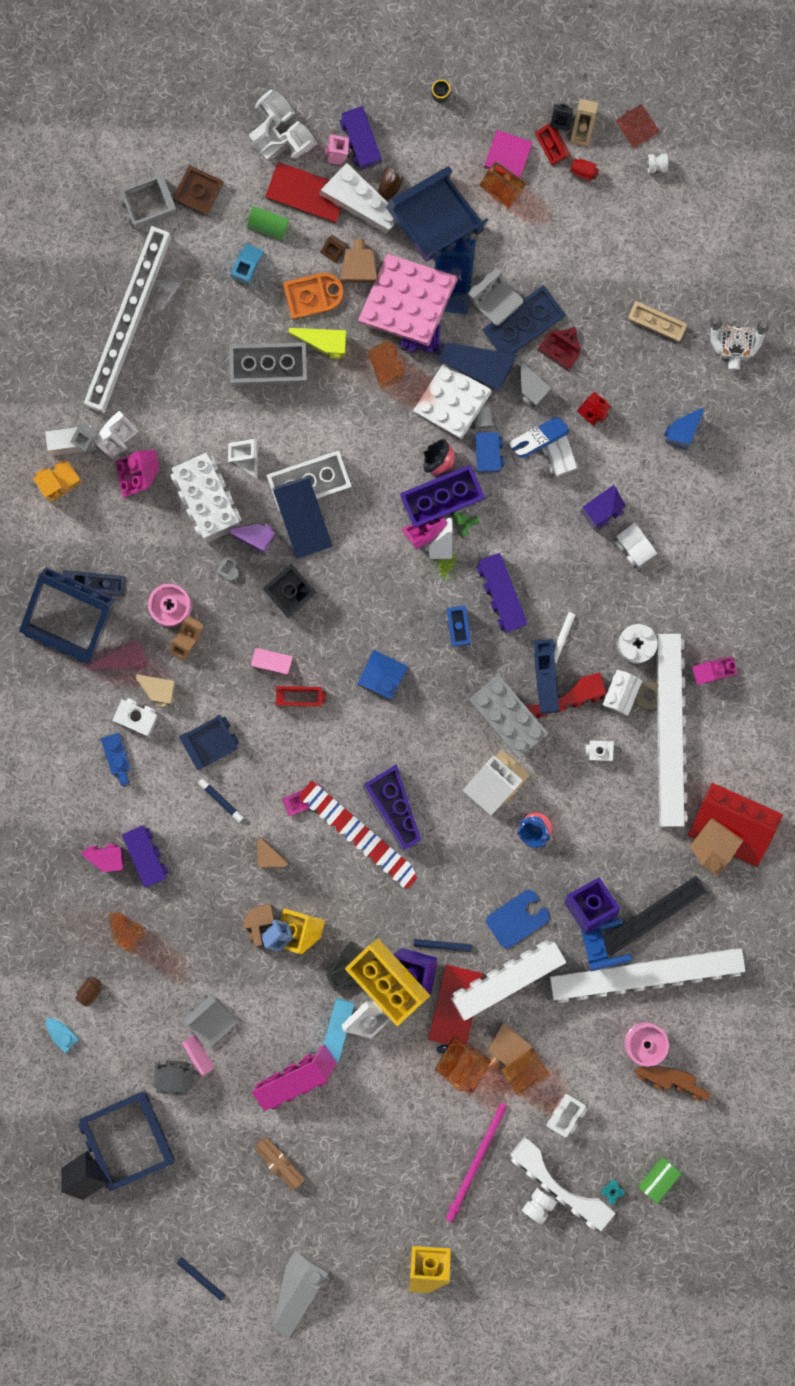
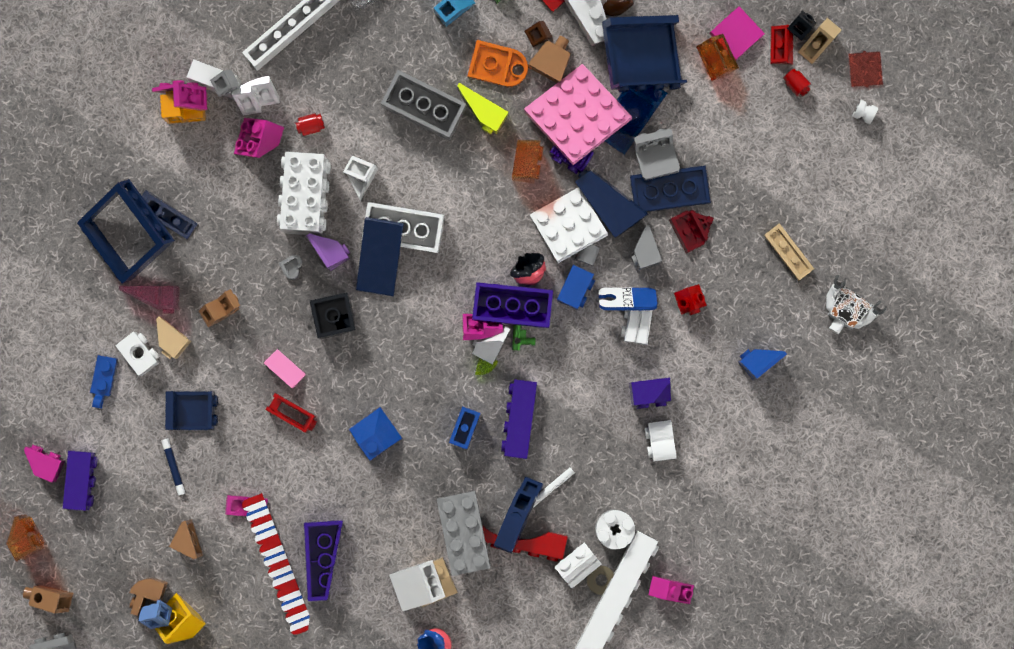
camera: 30 degrees right, 0 degrees up
(57, 466) = (185, 95): none -> dark pink bracket
(162, 597) = (211, 266): bright pink wheel -> none
(176, 435) = (310, 124): none -> red brick
(179, 971) = (48, 598): none -> medium nougat torso
(607, 746) = (538, 605): white brick -> none

